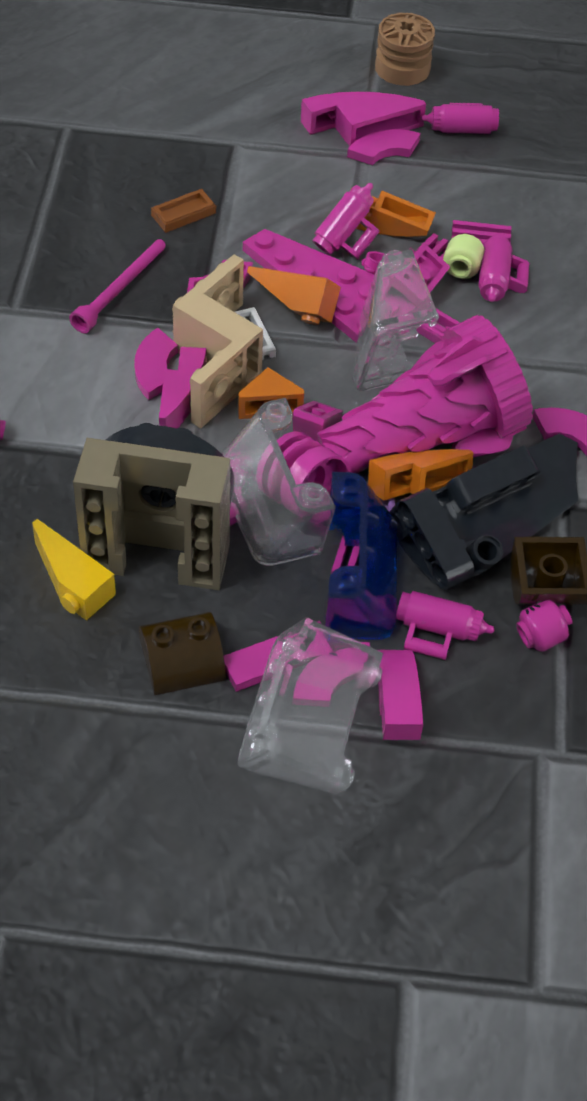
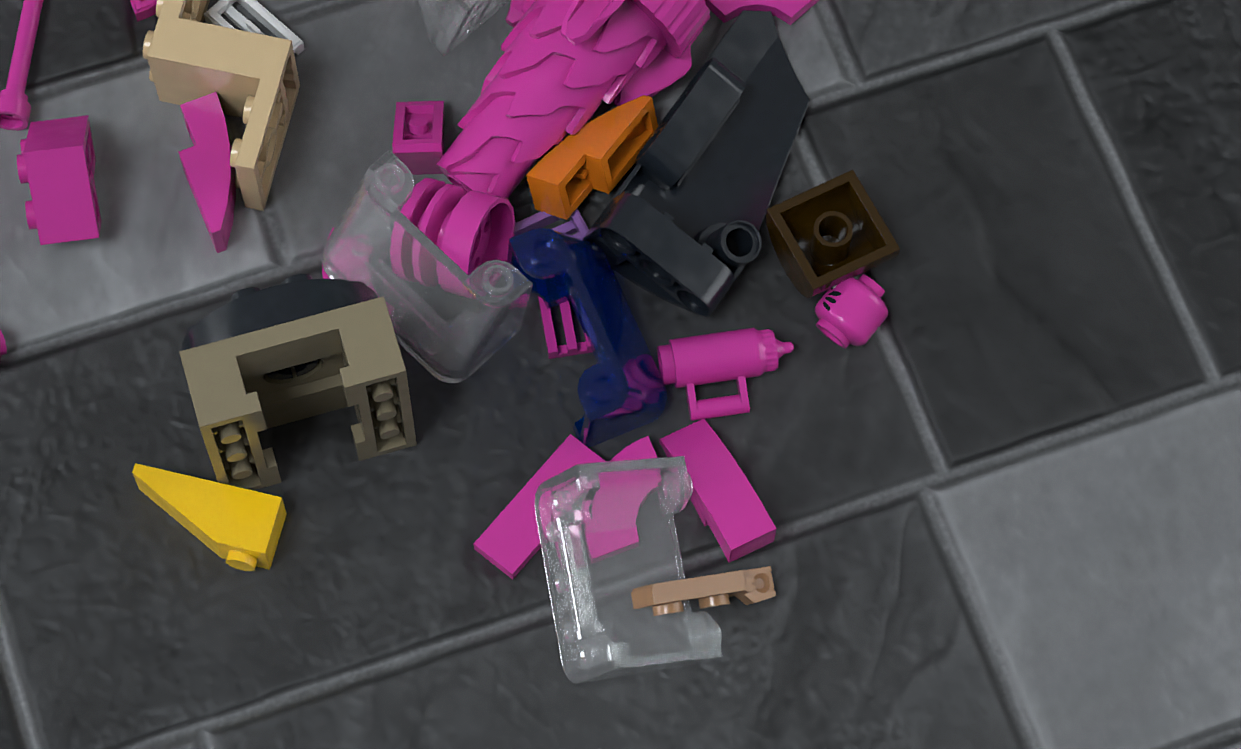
camera: 25 degrees left, 15 degrees up
(87, 358) = (60, 170): none -> dark pink brick
(152, 360) = (143, 139): dark pink tile -> none
(183, 653) = (421, 560): dark brown brick -> none
(265, 388) = (337, 124): orange slope -> none
(359, 745) = (710, 590): none -> medium nougat hinge

